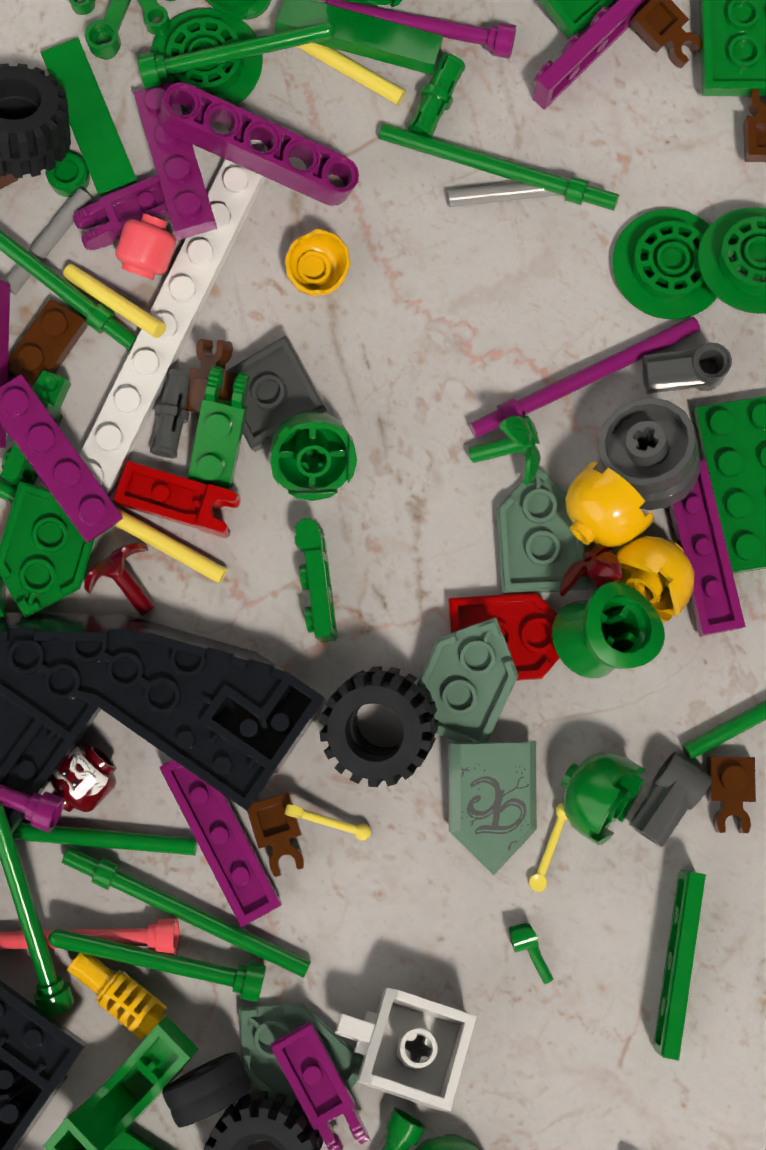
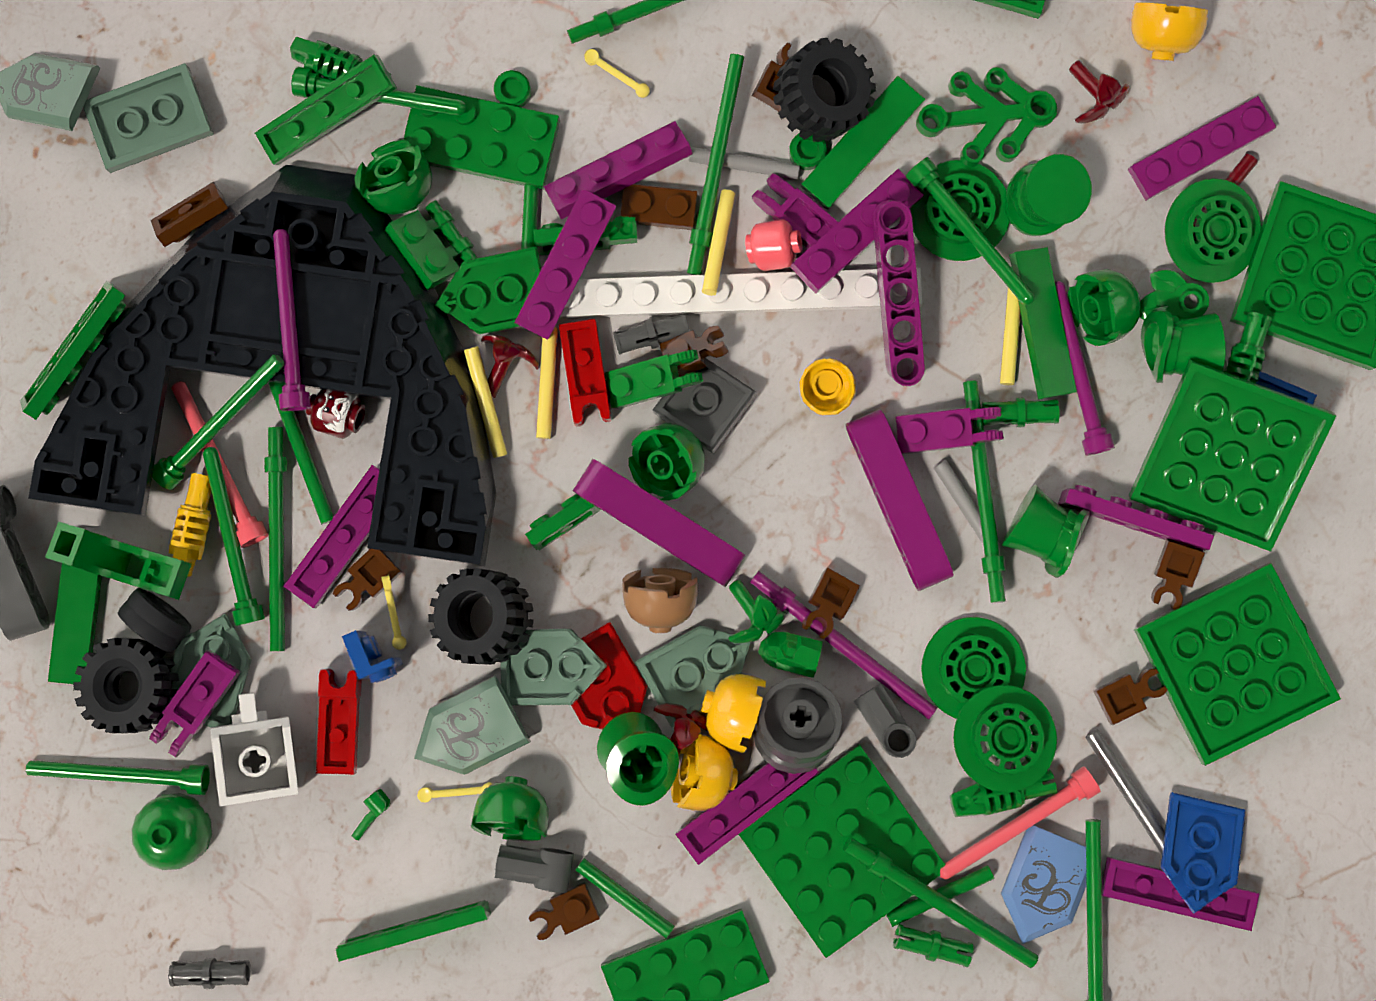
camera: 65 degrees right, 5 degrees up
(154, 615) = (485, 402): none -> light yellow bar
(356, 867) = (364, 654): none -> blue bracket
(370, 494) = (658, 522): none -> magenta beam
(418, 173) = (944, 429): none -> magenta hinge
(419, 939) = (338, 724): none -> red plate
(452, 531) = (660, 599): none -> medium nougat cylinder
(466, 251) = (899, 500): none -> magenta beam
(535, 362) = (832, 598): none -> reddish brown plate
(568, 122) = (1046, 531): none -> green hat
(571, 428) = (791, 653): none -> green rock

